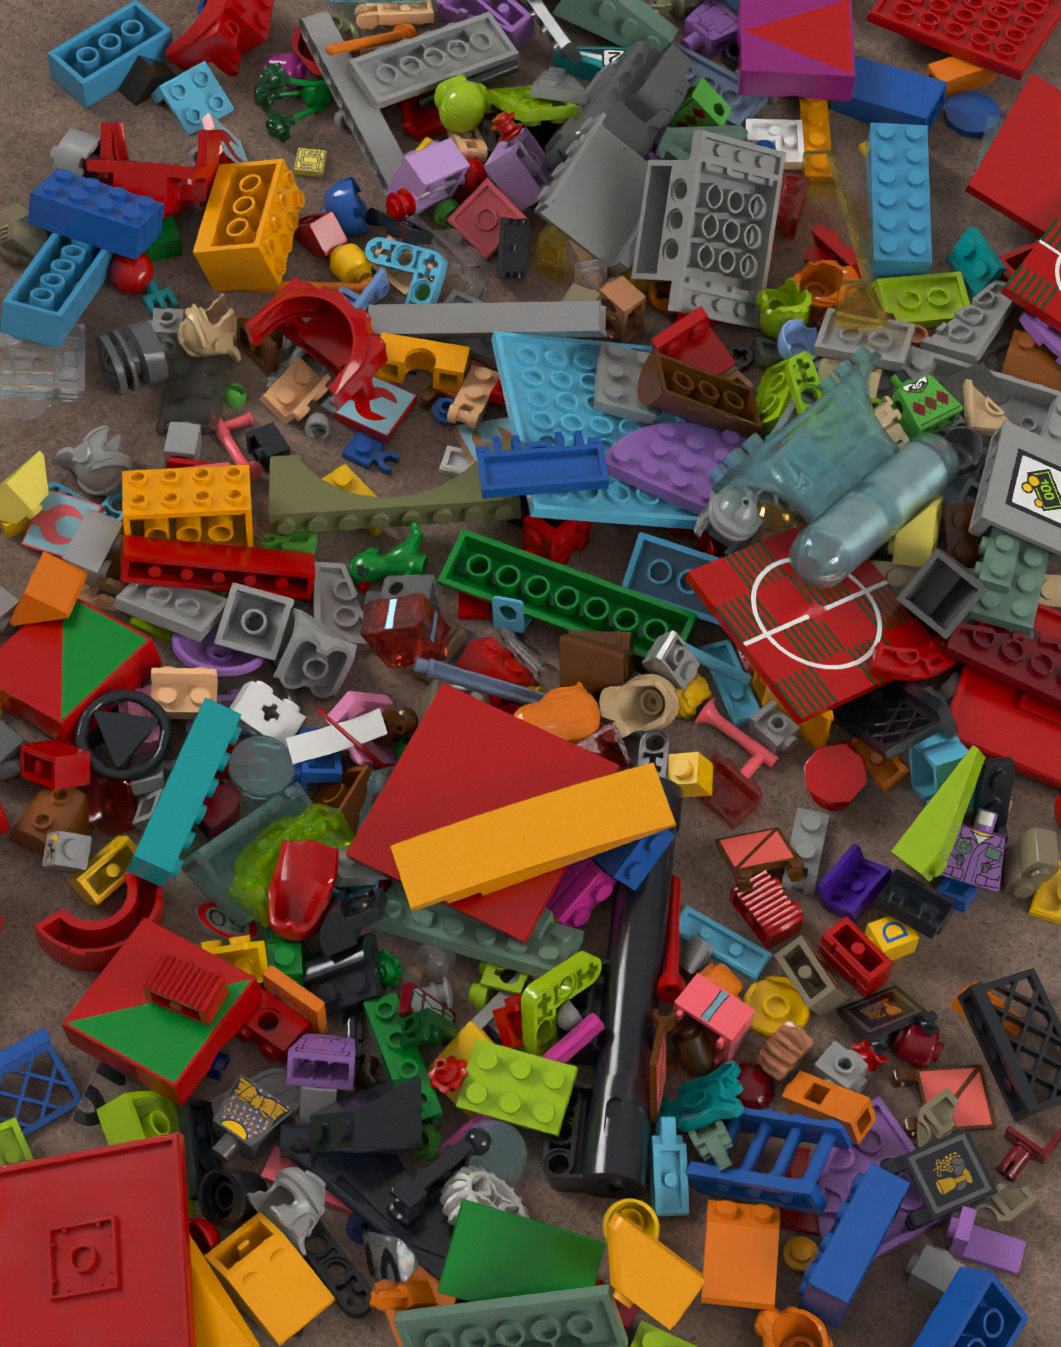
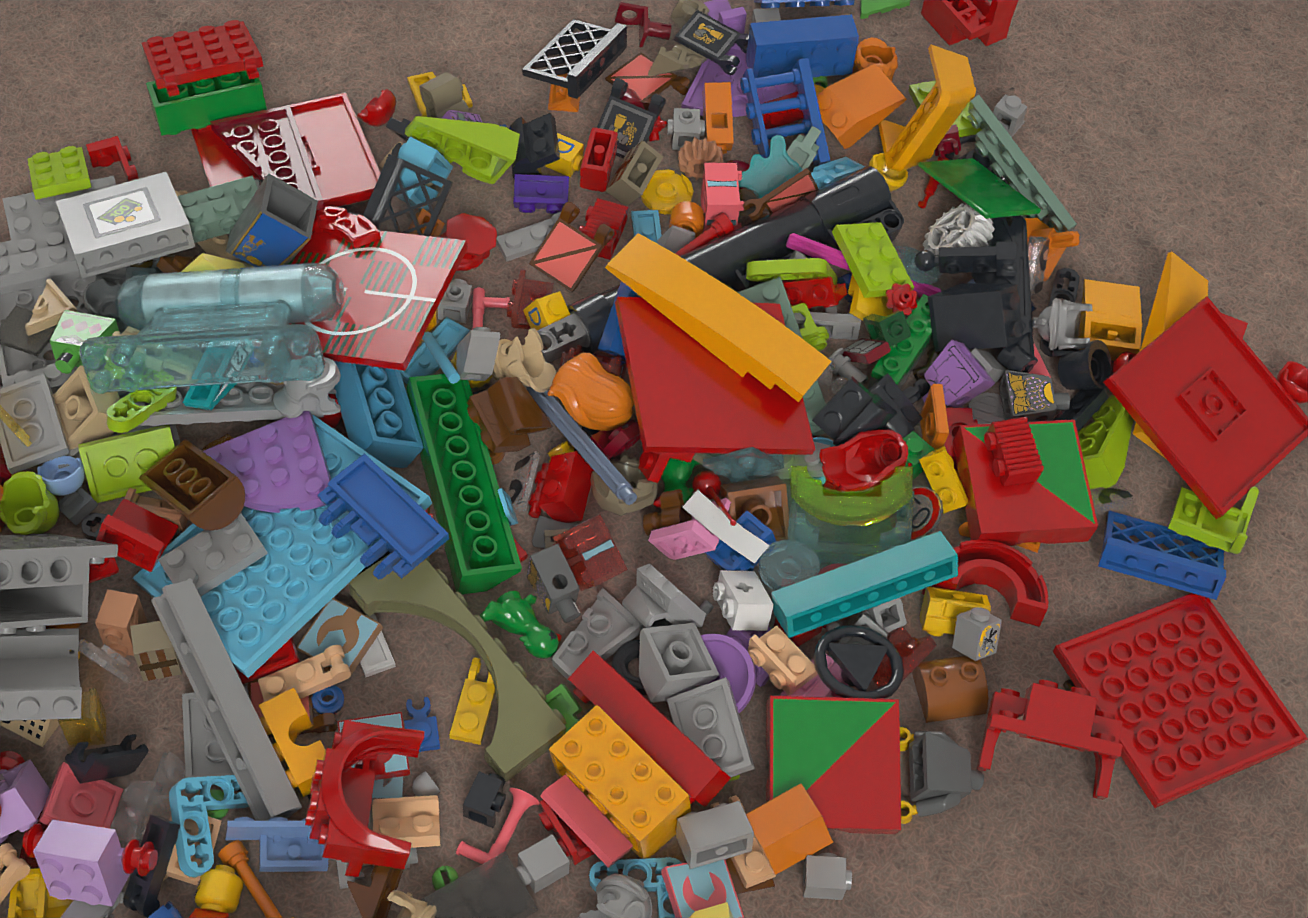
camera: 130 degrees left, 0 degrees up
(55, 764) = (922, 697): red brick -> none

